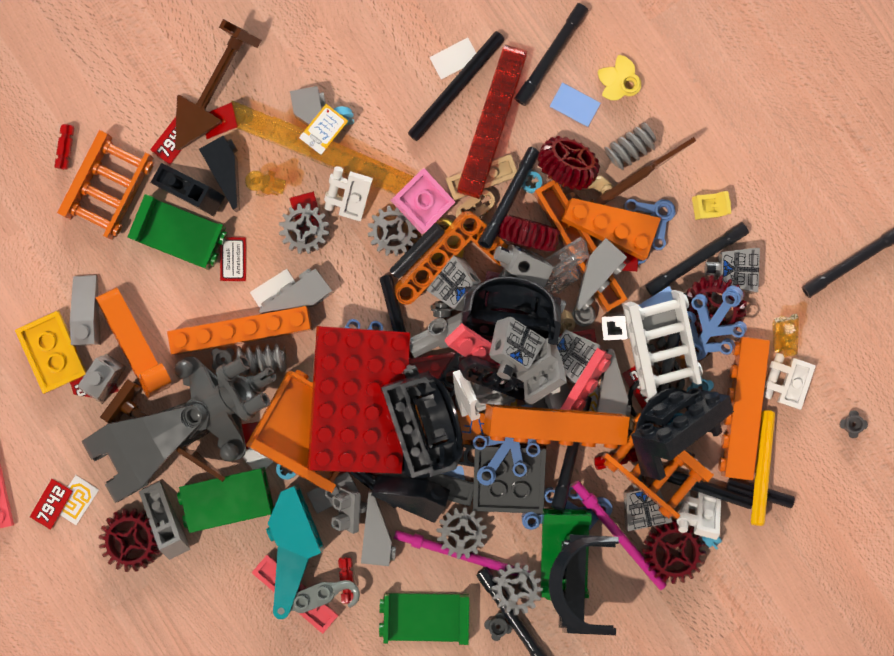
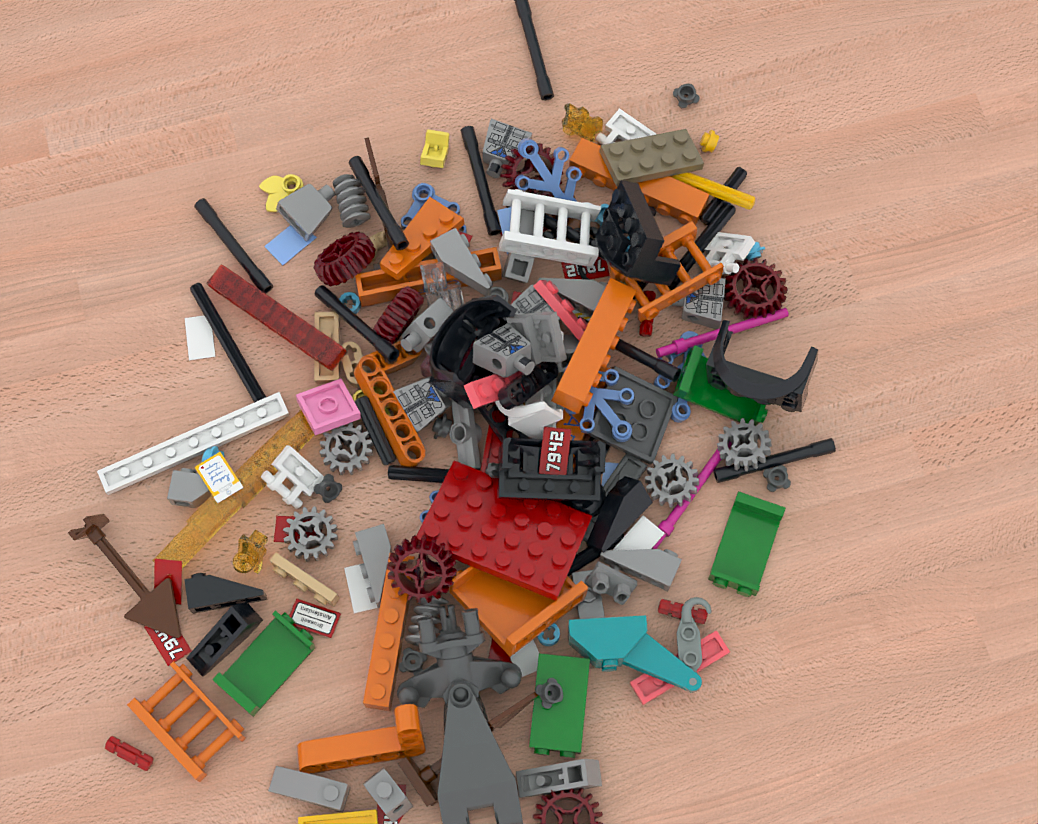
camera: 65 degrees left, 15 degrees down
(227, 496) = (555, 690): none -> dark grey plate
(260, 238) = (303, 580): none -> tan plate
(287, 328) = (431, 569): none -> dark red gear
(350, 228) = (332, 493): none -> dark grey plate
(351, 93) = (193, 443): none -> white plate
(399, 521) = (641, 536): none -> white sticker
(445, 421) = (554, 451): none -> red sticker
(608, 109) = (306, 209): none -> light grey torso
(632, 174) = (393, 229): none -> black piece
(771, 413) = (651, 157): none -> dark tan plate
(811, 462) = (709, 141): none -> yellow plate

